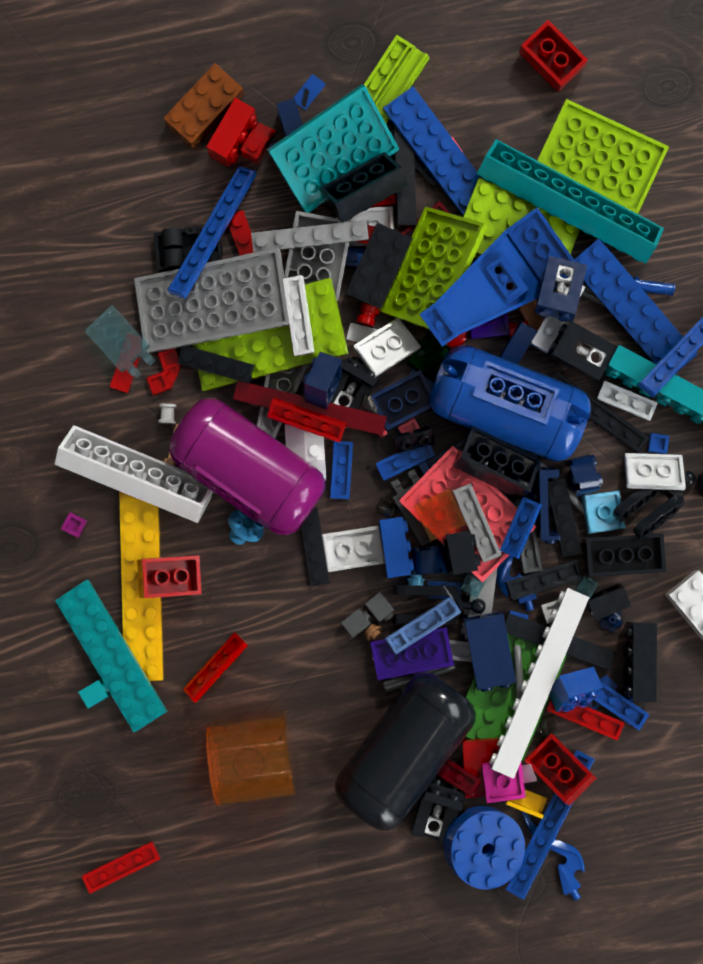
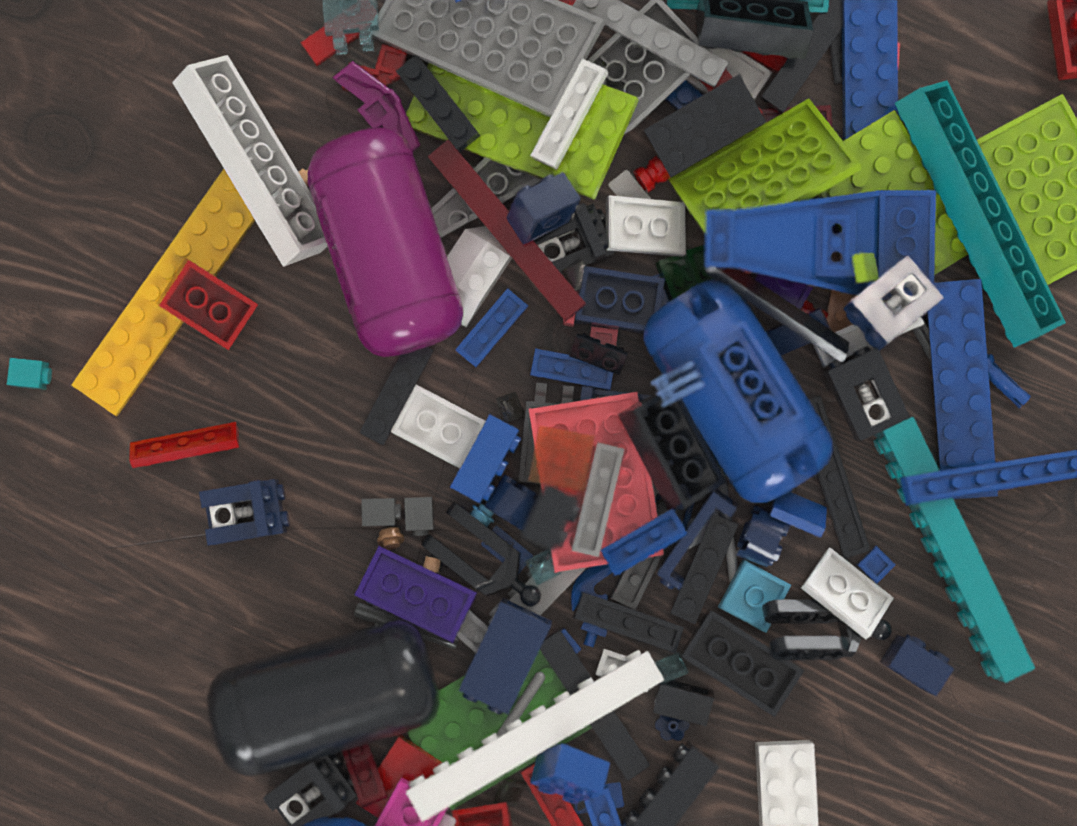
camera: 45 degrees right, 0 degrees up
(74, 525) = (146, 168): magenta plate -> none
(111, 656) = (77, 345): teal plate -> none
(167, 414) = (342, 120): white bush -> none
(181, 387) = (381, 104): none -> magenta plate
(244, 528) = (331, 312): dark azure plate -> none
(250, 759) = (142, 575): clear orange brick -> none
(287, 664) = (266, 511): none -> dark blue brick
(306, 420) = (492, 240): red plate -> none
(423, 625) = (451, 571): medium blue plate -> none
(473, 428) = (672, 386): none -> medium blue arm
(502, 339) = (782, 311): none -> black tile
(530, 280) = (865, 267): none -> lime tile
(595, 446) = (800, 513): none -> blue tile
(626, 400) = (876, 489): white plate -> none

